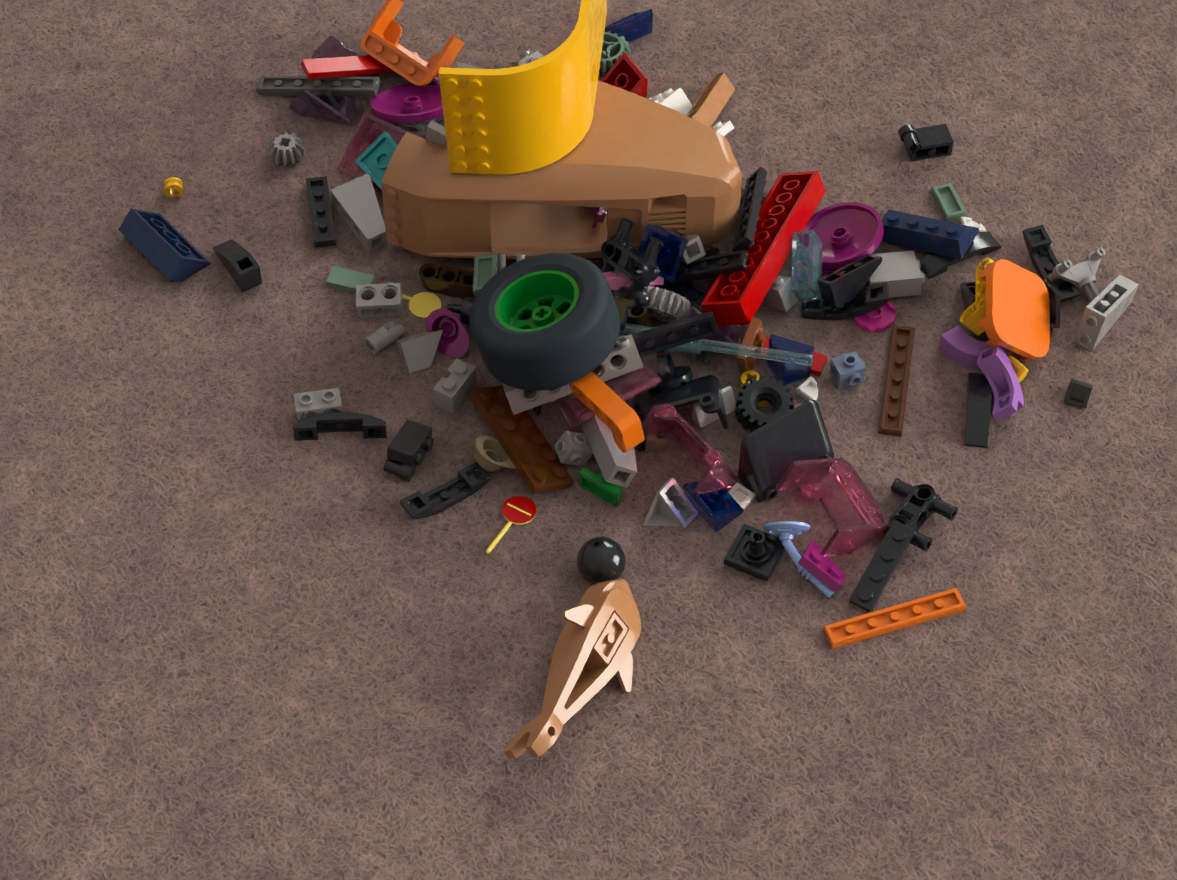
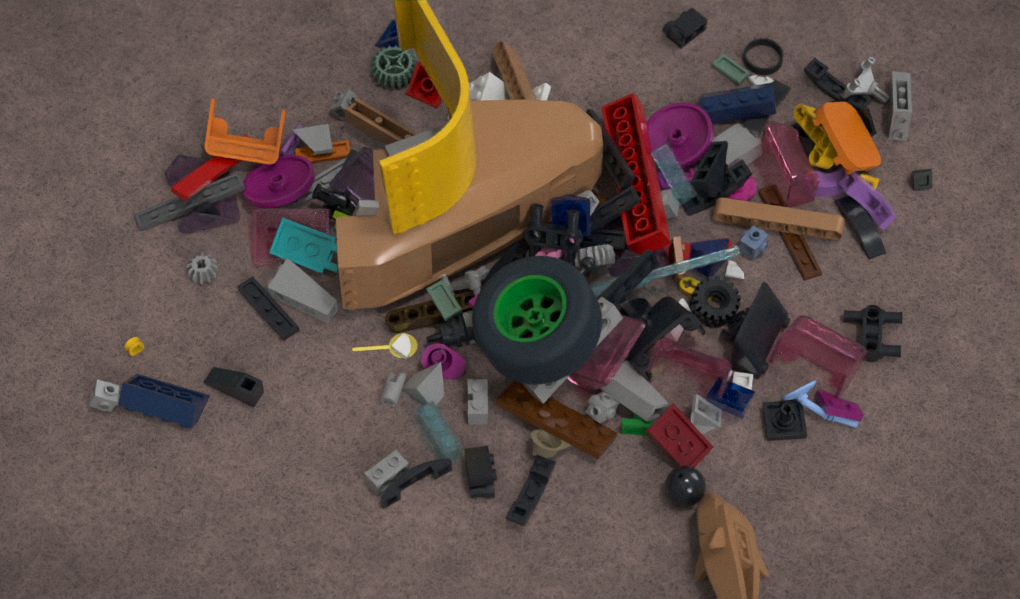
camera: 30 degrees left, 5 degrees up
(110, 215) = (104, 395): none -> light grey brick
(347, 279) = (332, 355): sand green tile -> none
(376, 300) = (373, 365): light grey brick -> none
(395, 394) = (439, 432): none -> clear light blue brick
(421, 303) = (402, 346): none -> white tile
(516, 511) = (591, 477): red piece -> none
(610, 410) = (628, 365): orange beam -> none
(628, 513) = (679, 437): none -> dark red plate
(882, 566) = (881, 384): black plate -> none
(891, 359) = (779, 218): none -> medium nougat beam
(894, 618) = (910, 419): orange tile -> none
(938, 311) = (793, 161): none -> clear pink windscreen
(994, 188) = (765, 42): none -> black tyre

